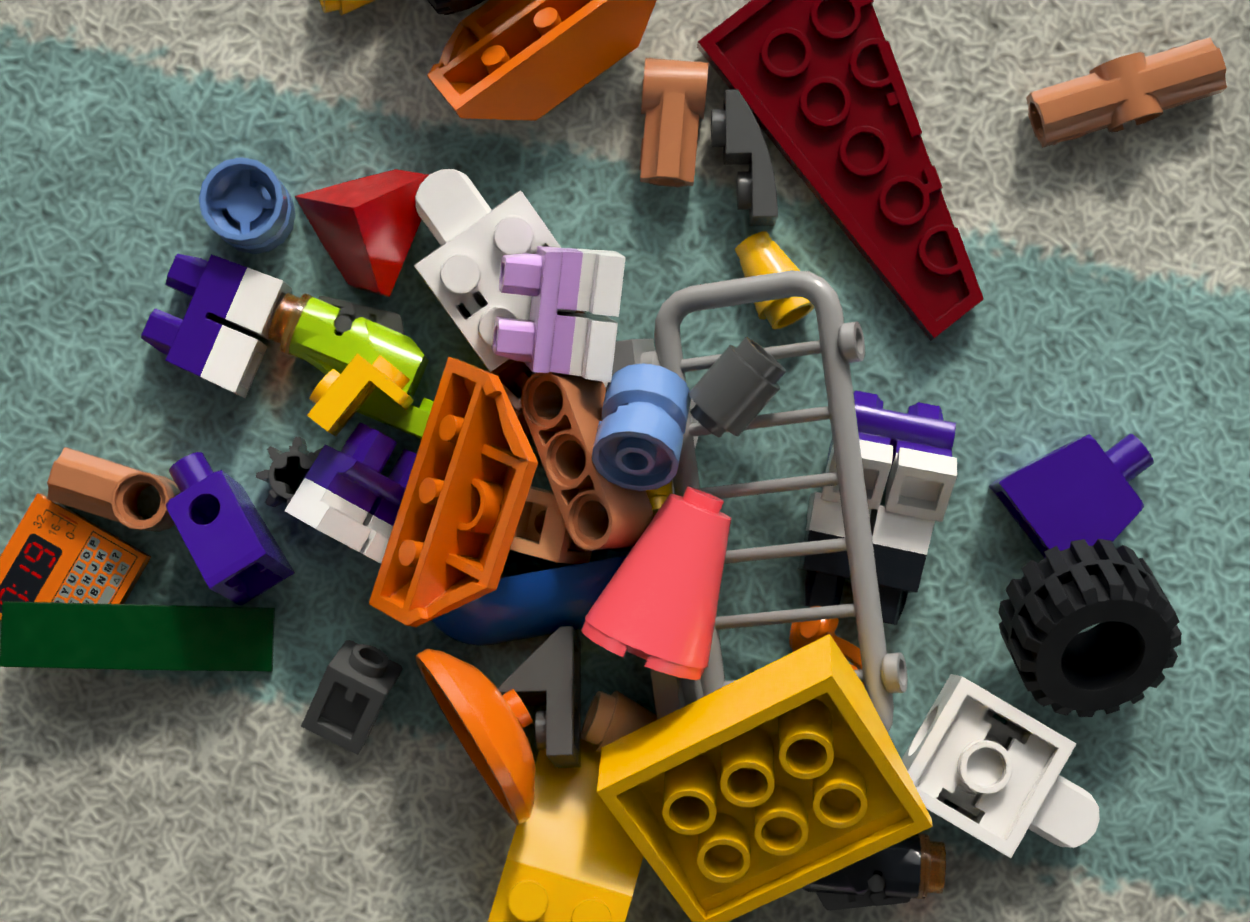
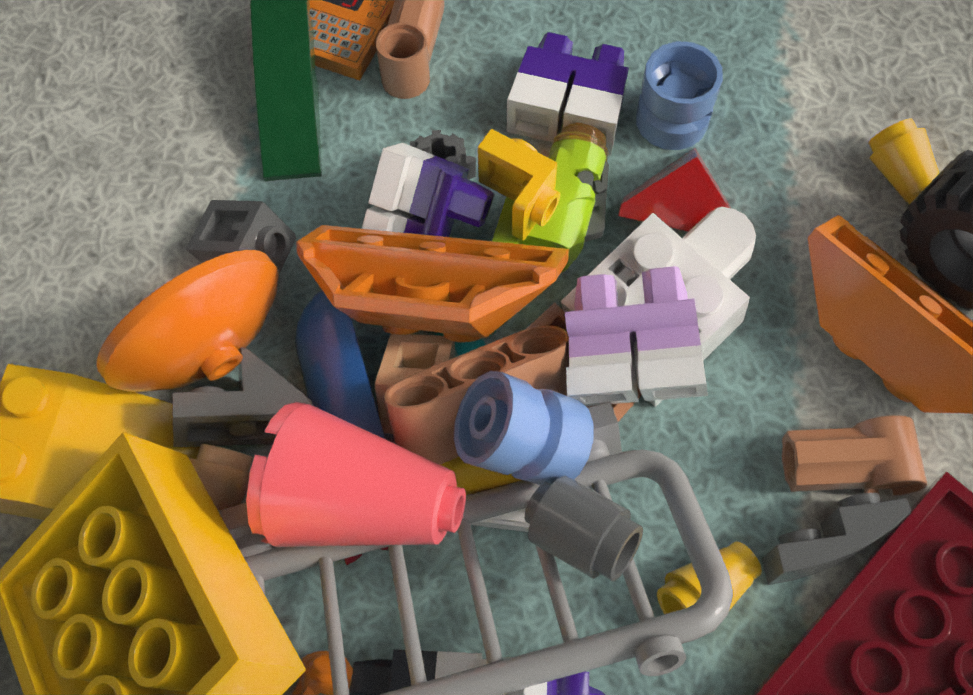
camera: 85 degrees right, 20 degrees down
(224, 532) = (374, 108): dark purple torso -> none

